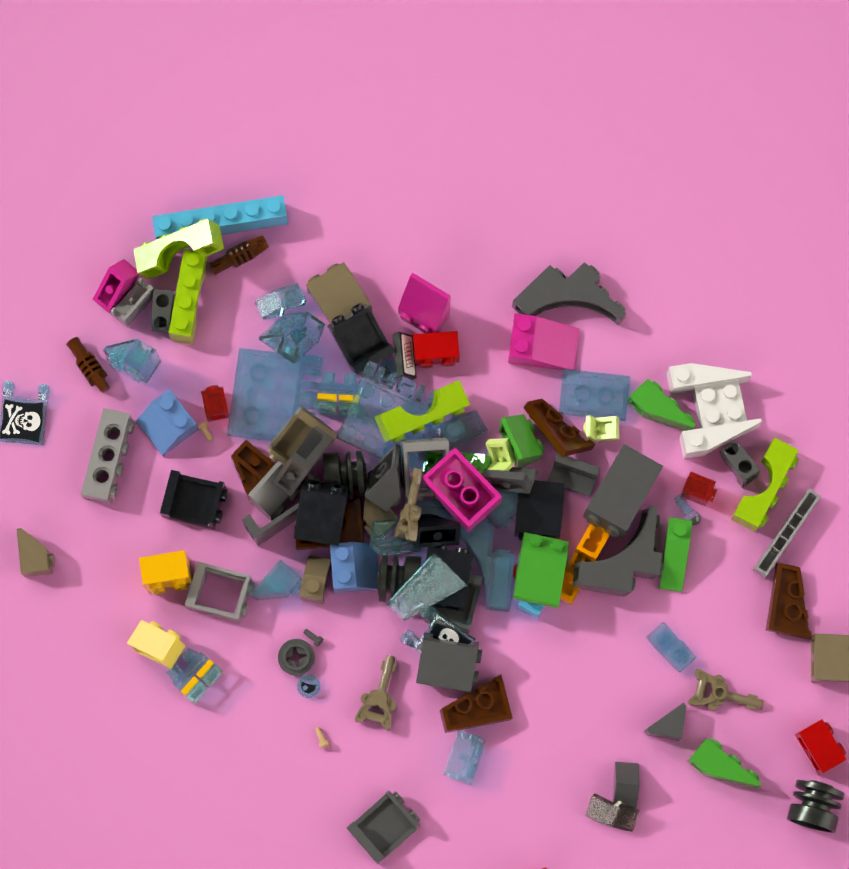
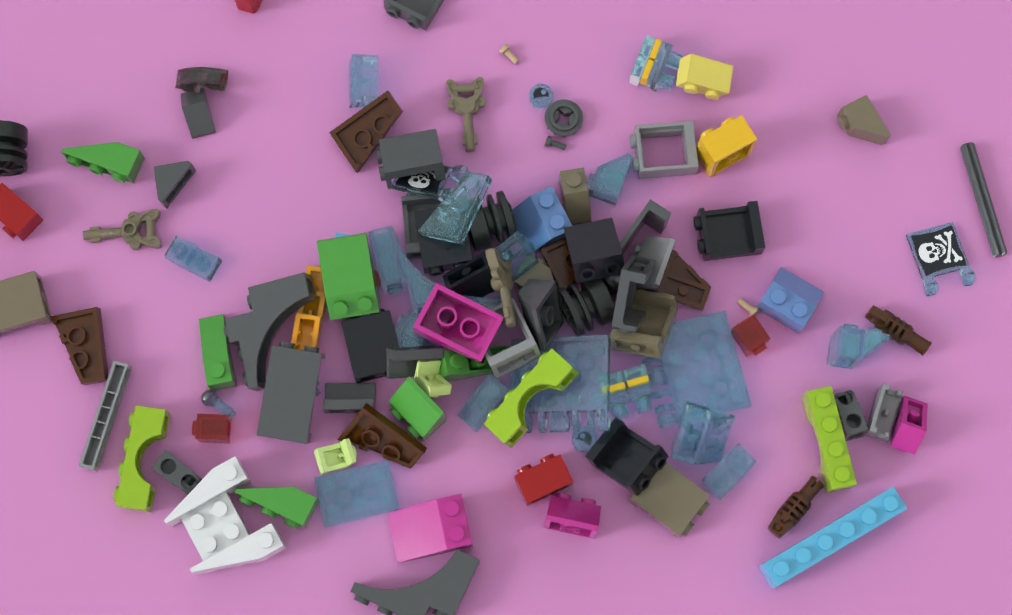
camera: 160 degrees right, 0 degrees up
(109, 422) = (835, 205): light grey brick -> none
(155, 256) = (843, 494): arch -> none
(404, 355) = (574, 459): tile -> none

